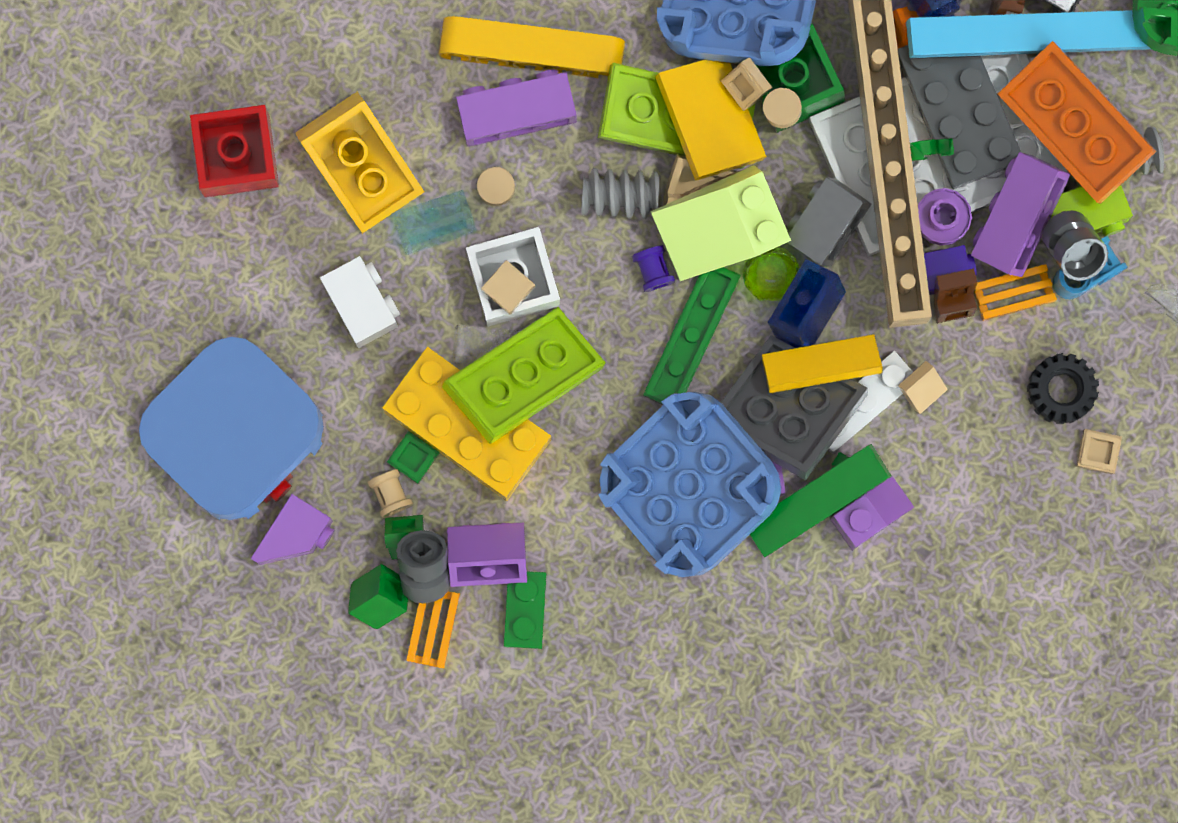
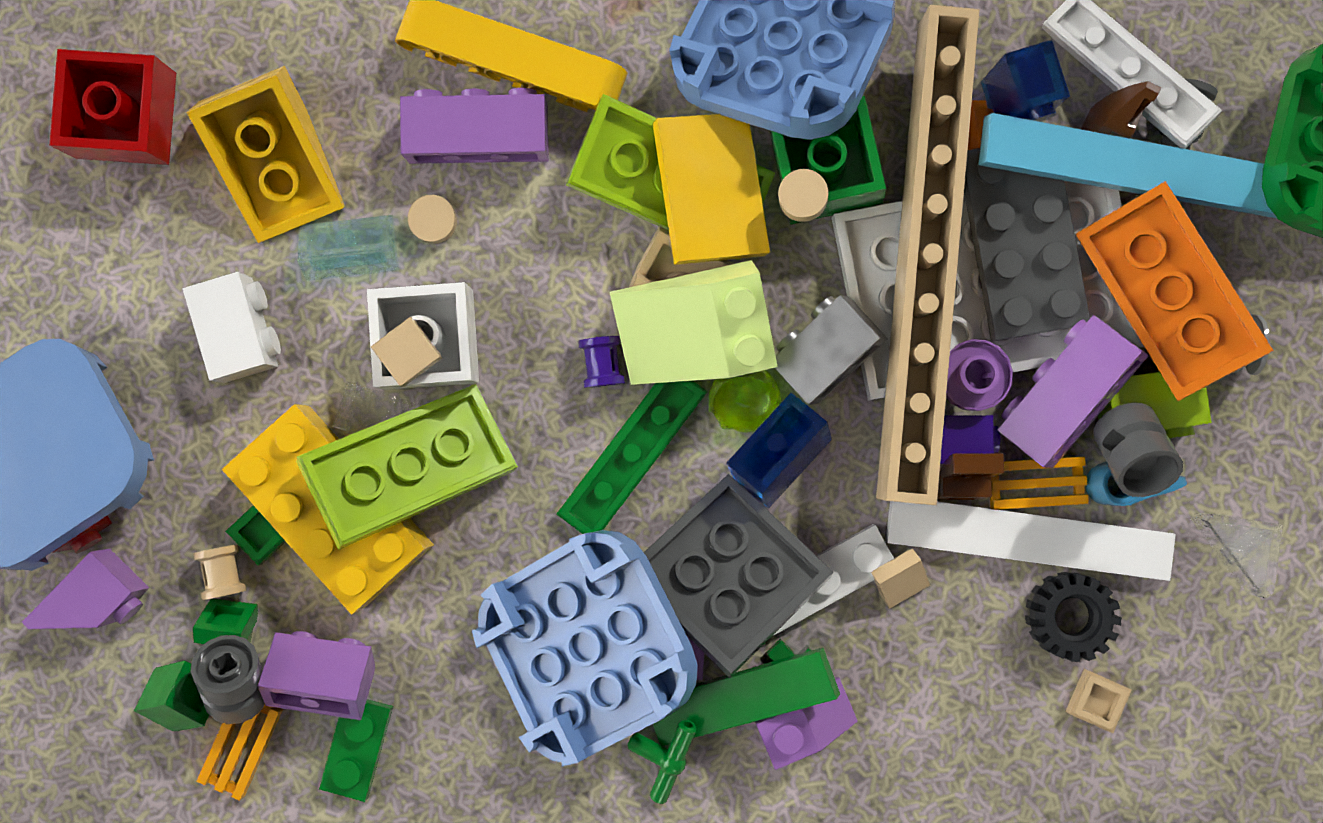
camera: 10 degrees right, 5 degrees up
(620, 193) = (578, 260): light grey piece -> none
(746, 84) = (764, 155): tan tile -> none
(774, 564) = (670, 759): none -> green piece
(822, 363) = (783, 528): yellow tile -> none
(929, 147) = (992, 286): green piece -> none
(1017, 336) = (1032, 538): none -> white tile

